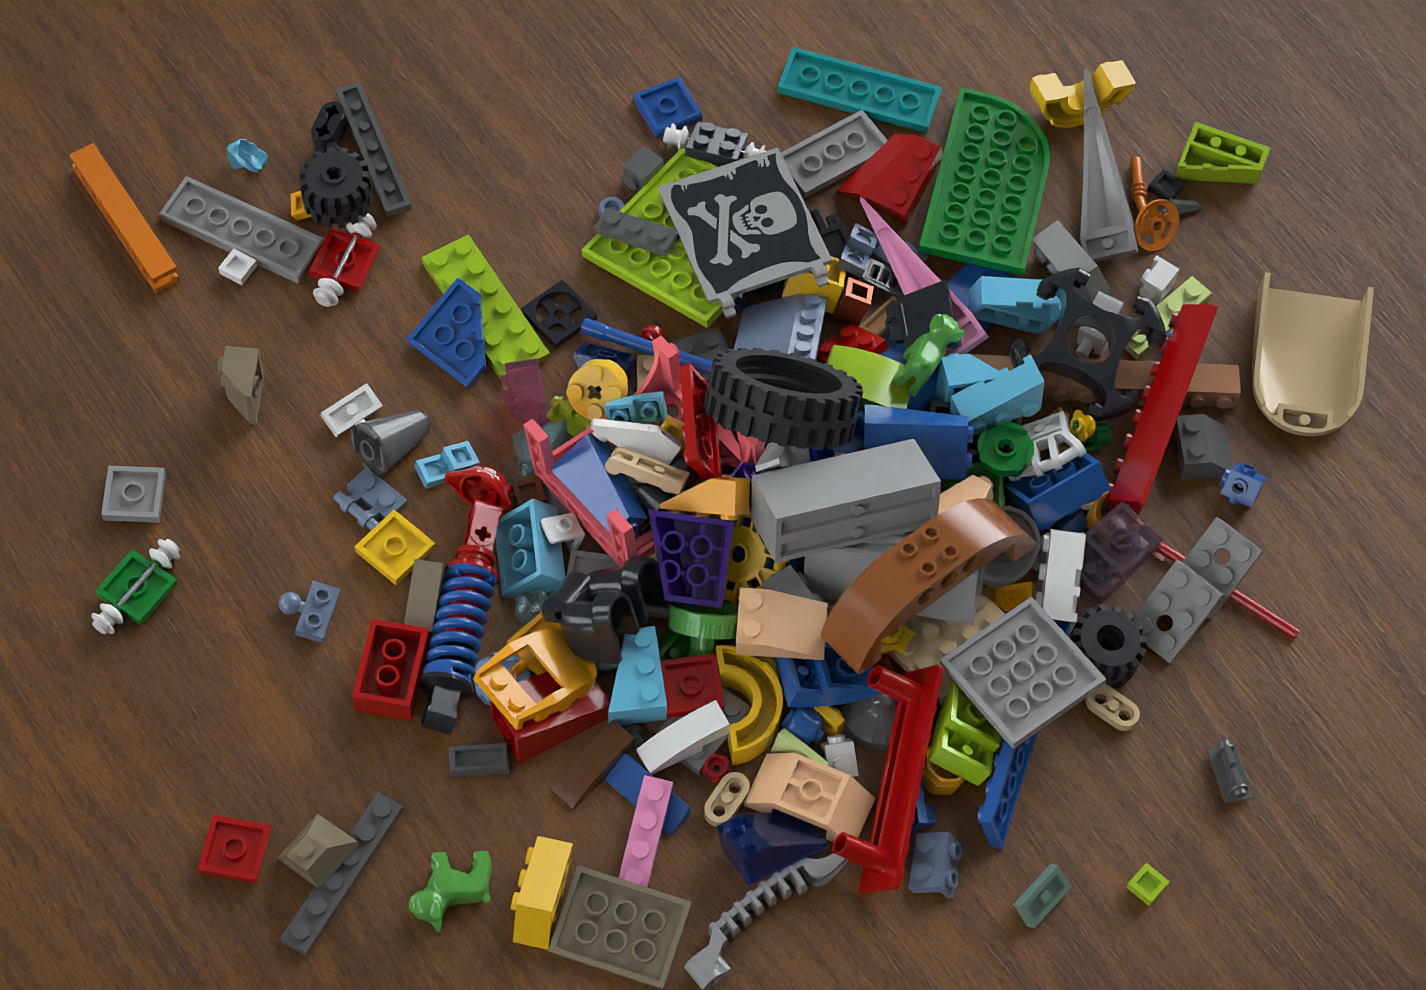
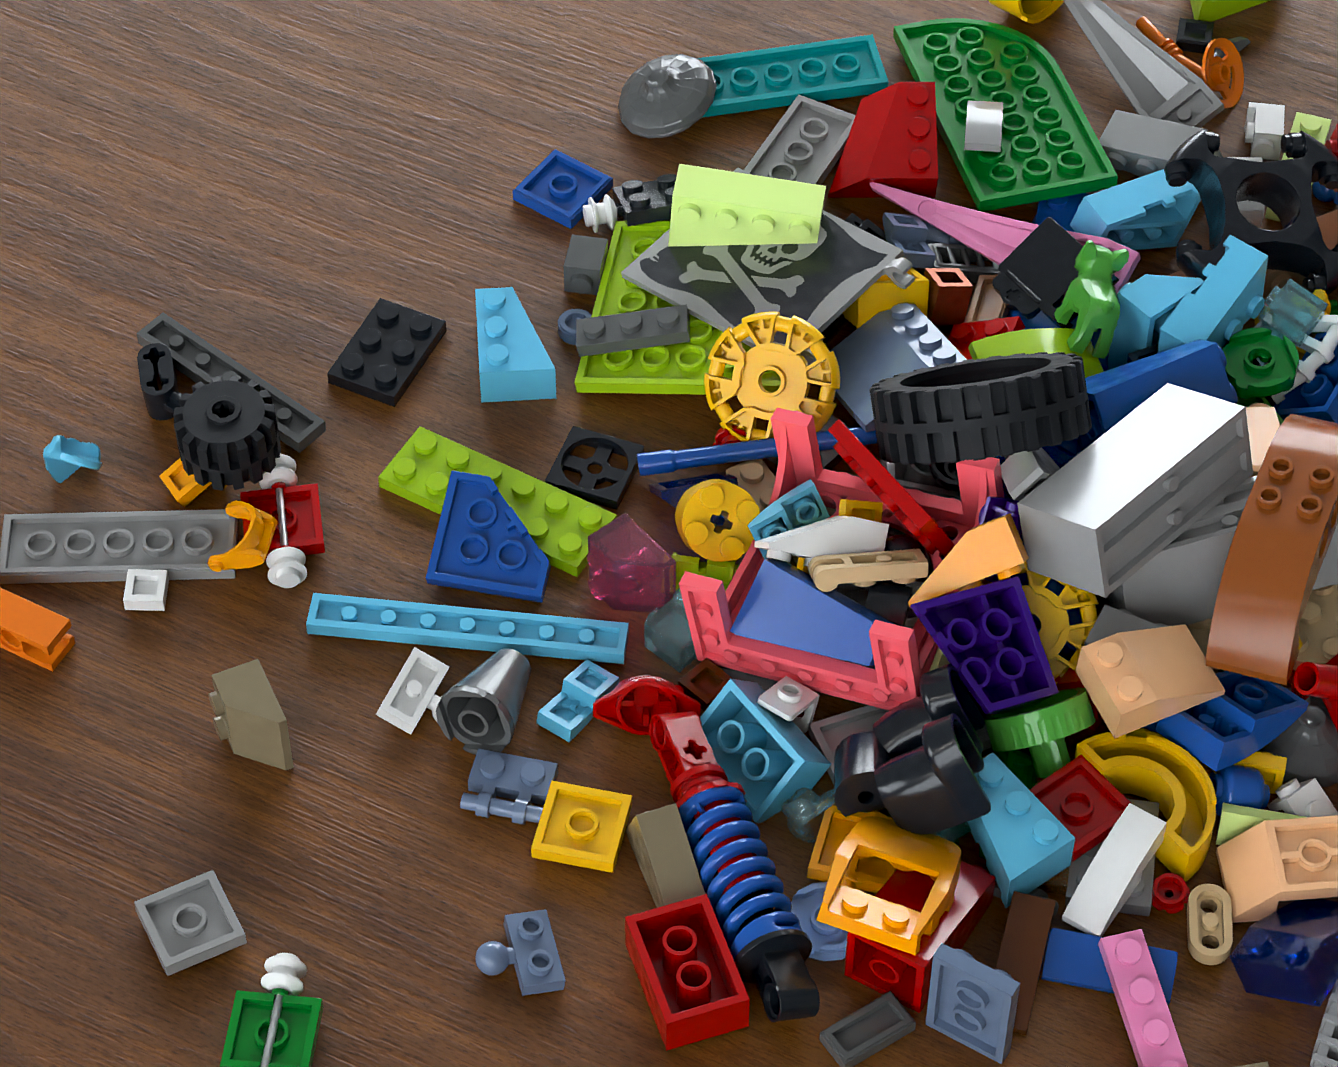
camera: 25 degrees left, 10 degrees down
(315, 267) = (255, 544): none -> light orange helmet
(411, 385) = (467, 628): none -> medium azure plate
(483, 172) = (387, 352): none -> black plate
(536, 775) = (972, 1002): none -> sand blue plate
(552, 207) = (509, 350): none -> medium azure wedge
(704, 308) = (774, 356): none -> yellow plate
(749, 182) = (742, 209): none -> yellowish green wedge
(774, 71) = (666, 96): none -> dark grey hat
(958, 191) = (984, 126): none -> light grey slope
(1049, 425) = (1292, 312): none -> clear light blue slope

